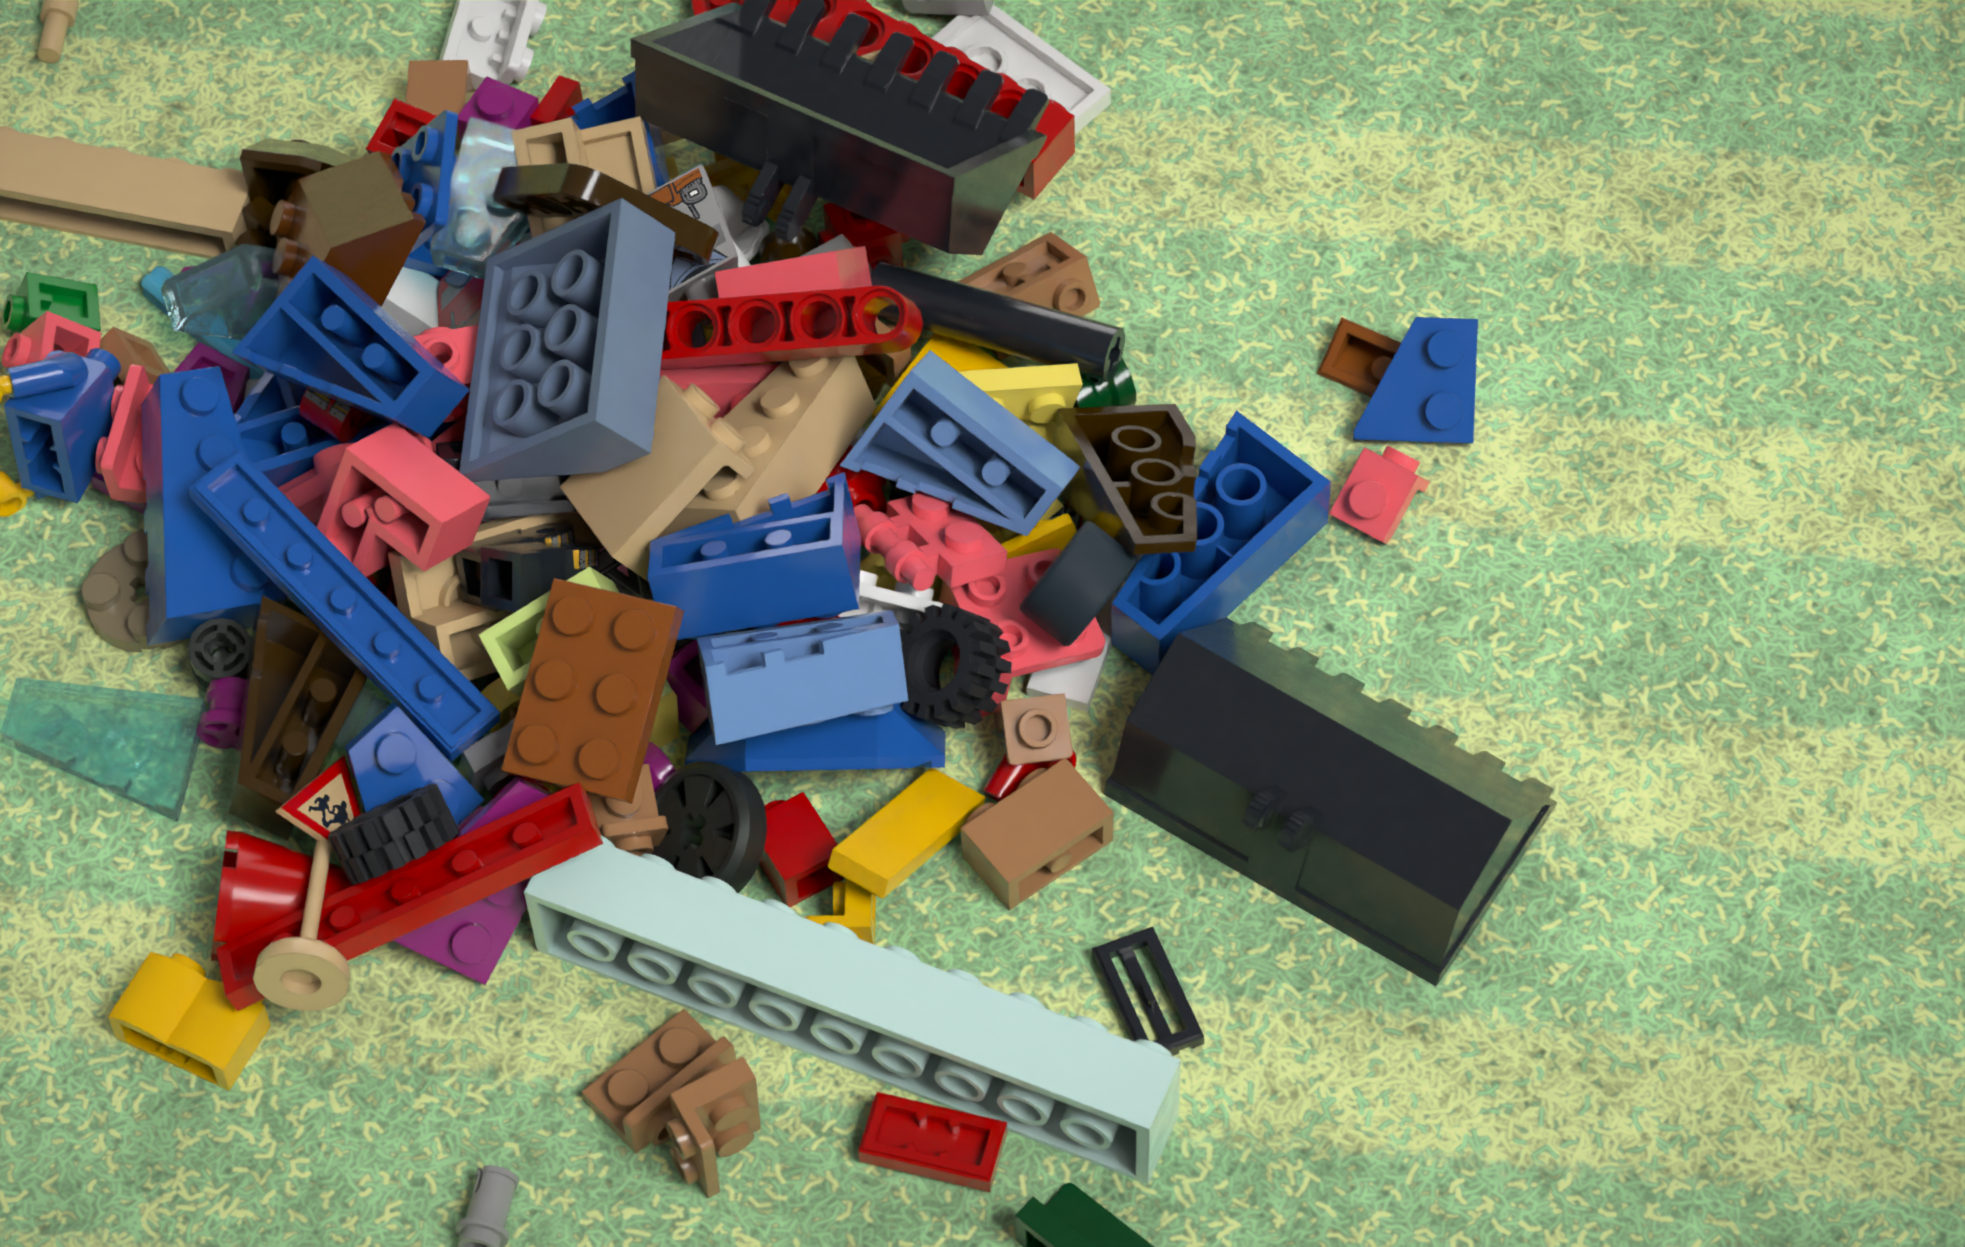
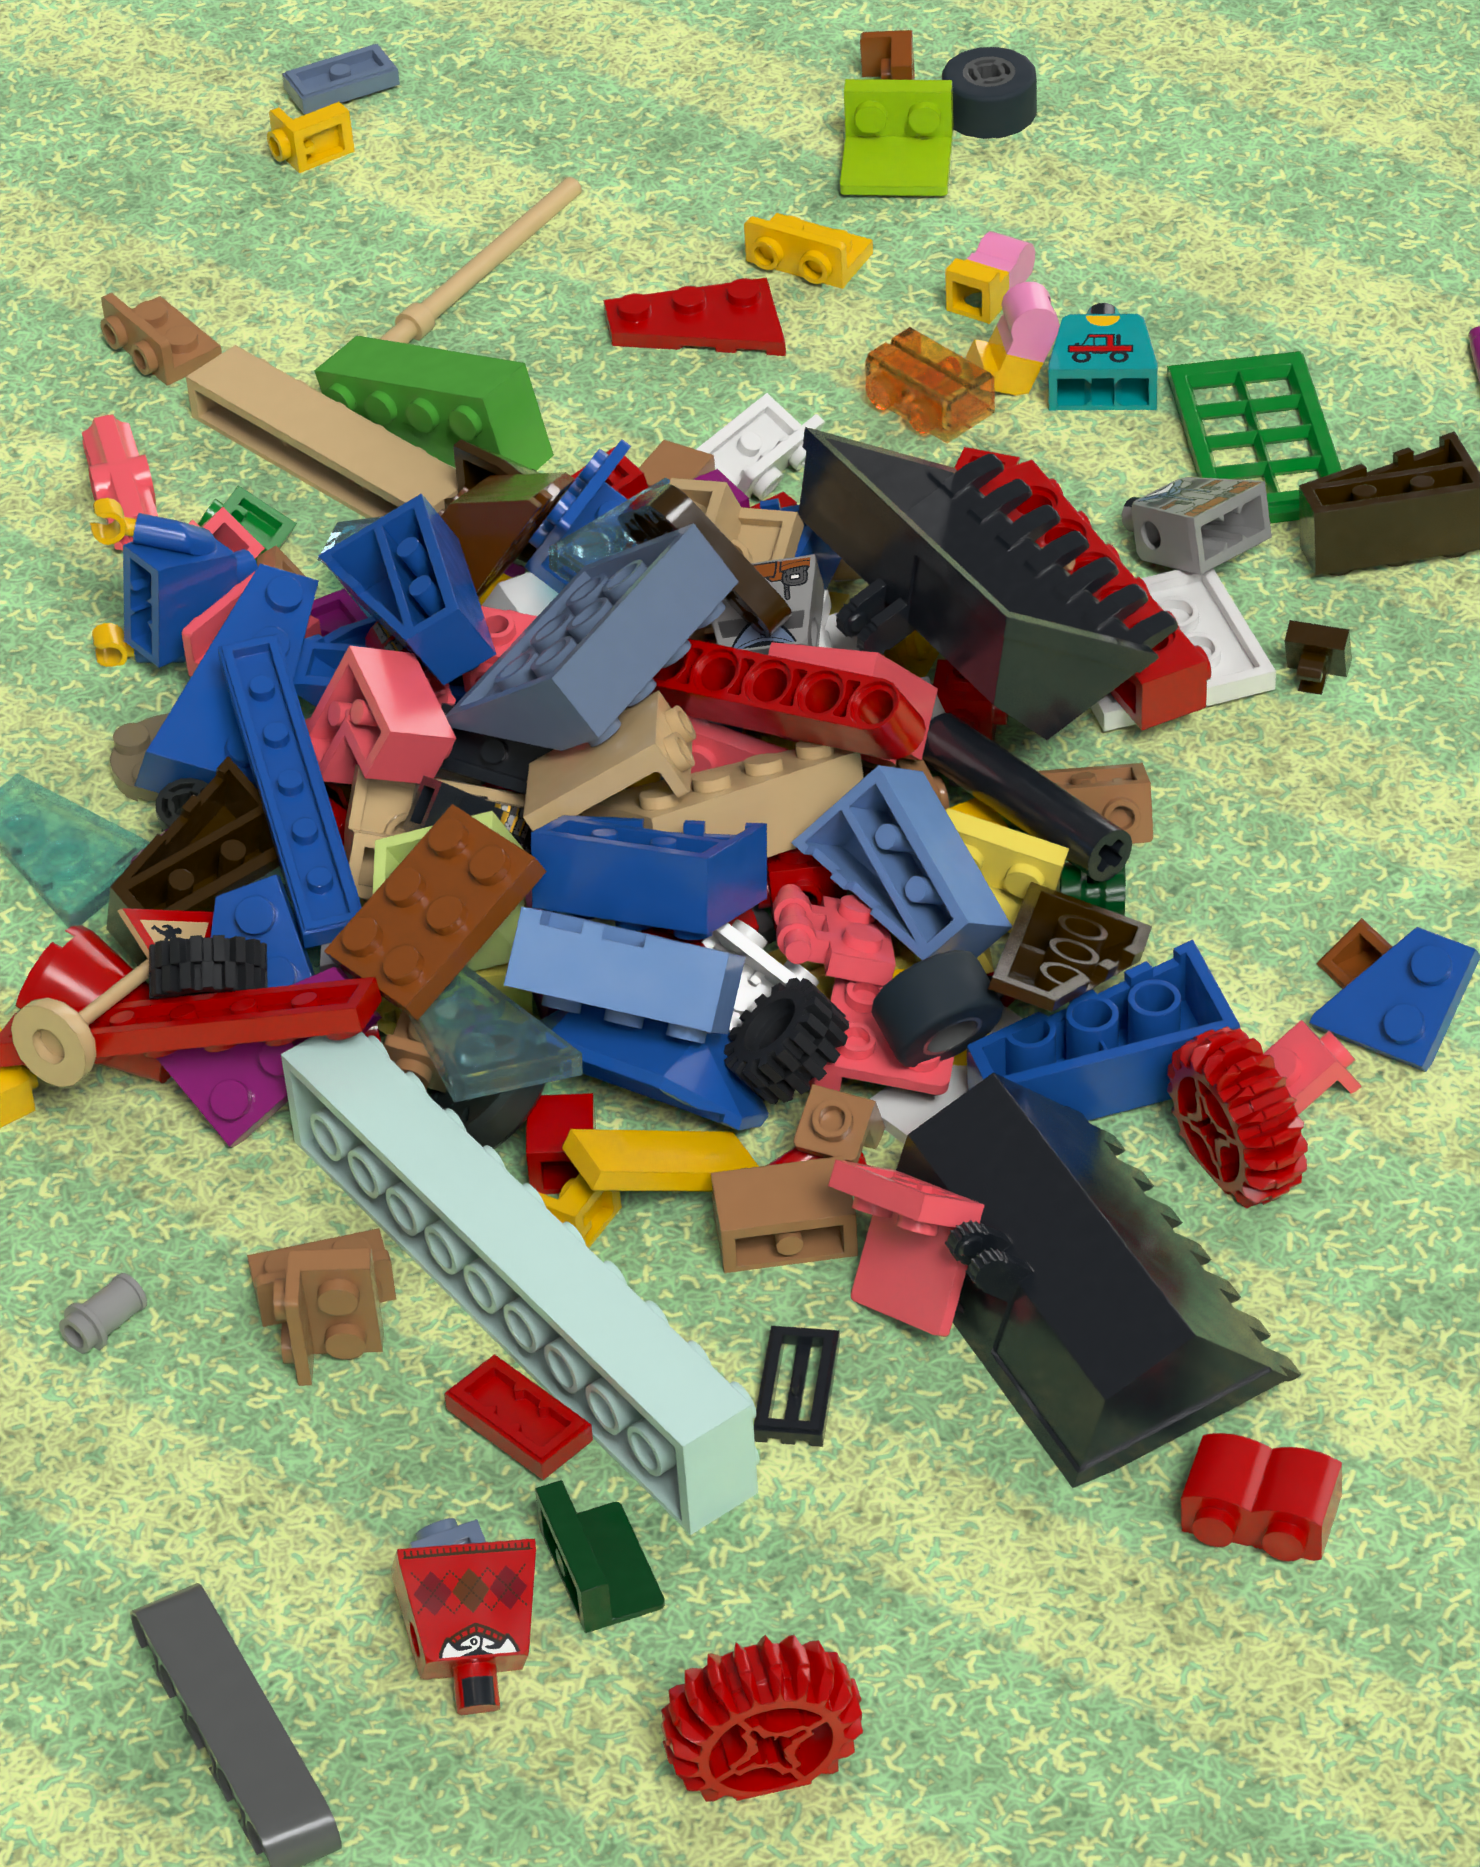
camera: 30 degrees right, 15 degrees down
(155, 98) = (439, 398): none -> bright green wedge
(709, 795) = (490, 1042): none -> clear light blue wing
(1134, 56) = (1316, 653): none -> dark brown tile
(1186, 826) = (905, 1258): none -> coral bracket
(1373, 569) = (1237, 1116): none -> red gear
(1606, 929) = (1261, 1496): none -> red brick

